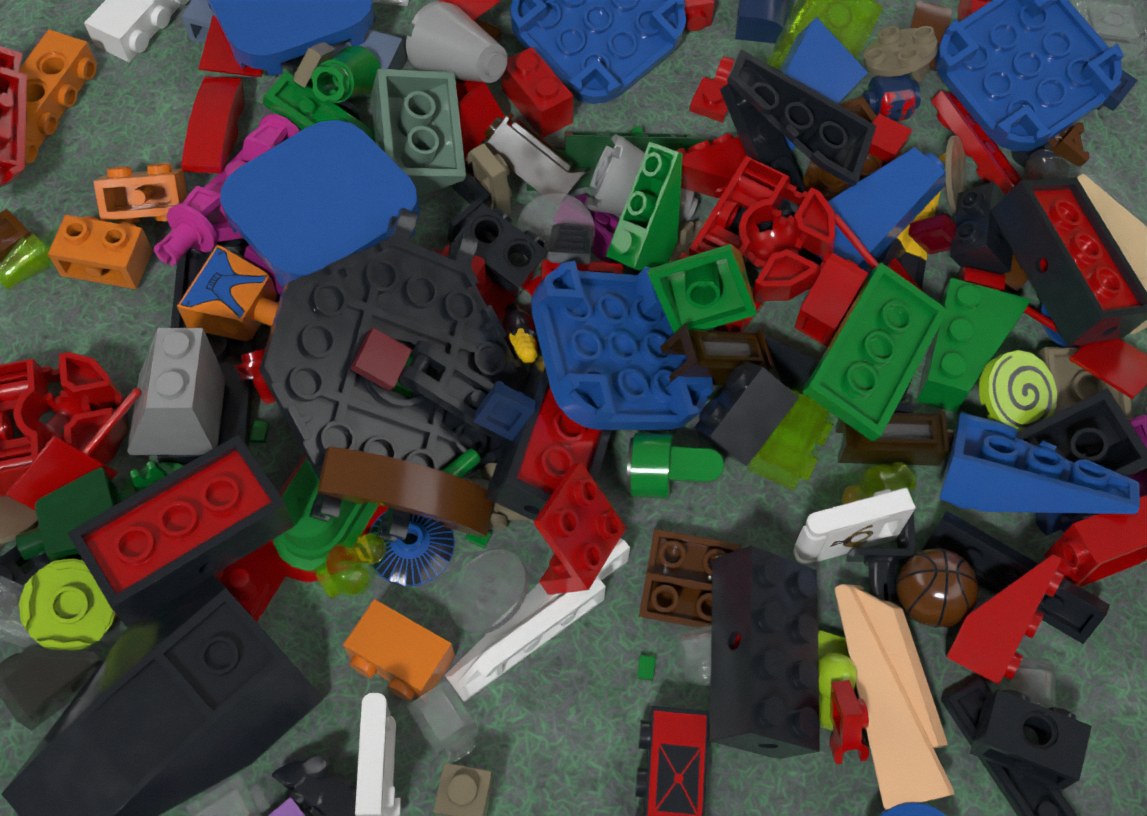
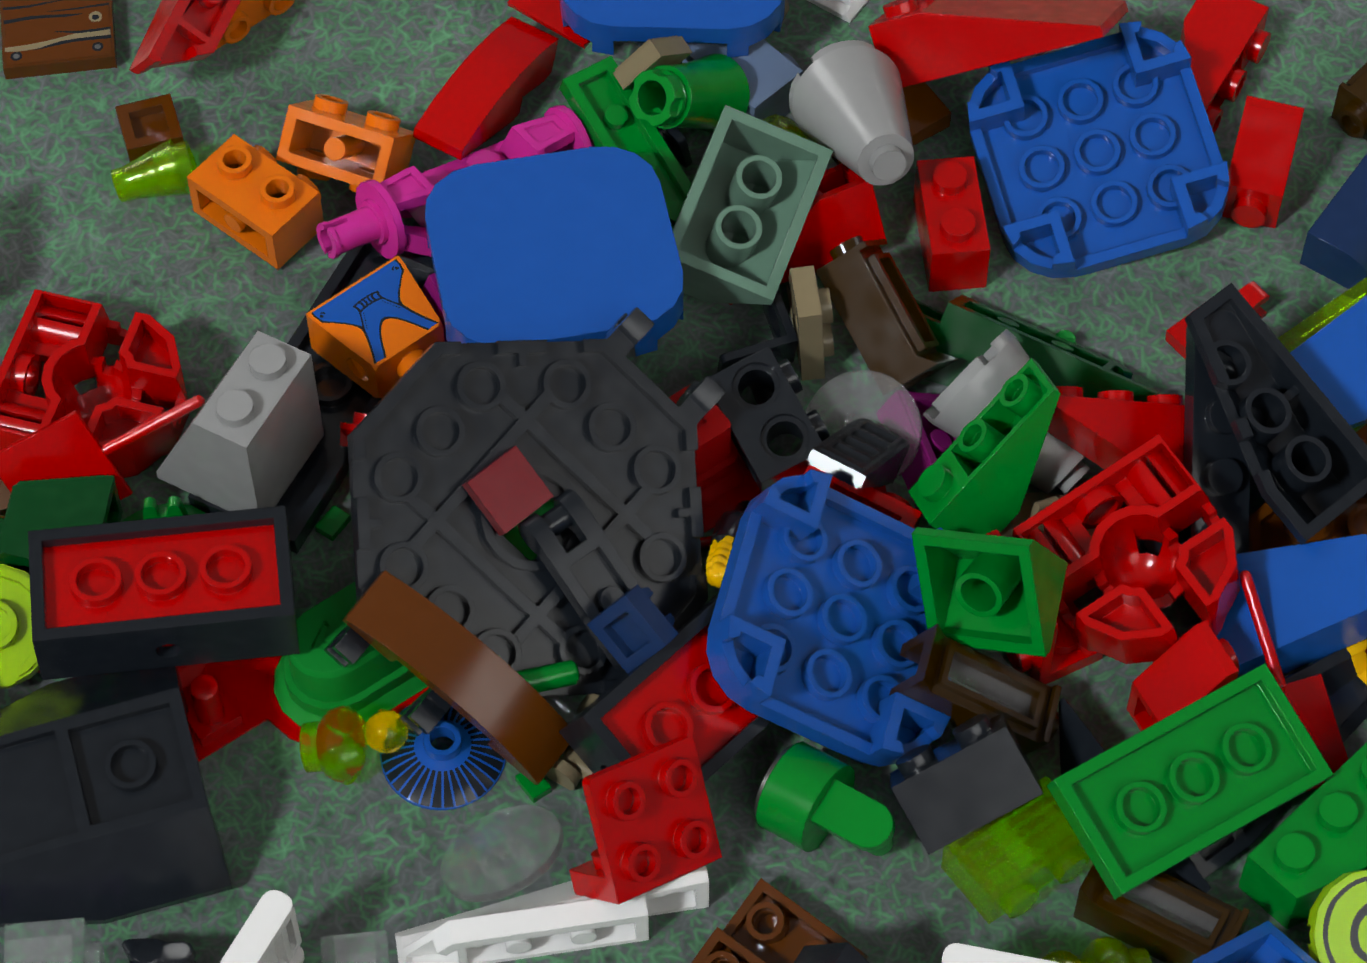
camera: 30 degrees right, 5 degrees down
(398, 651) = (350, 870): orange brick -> none

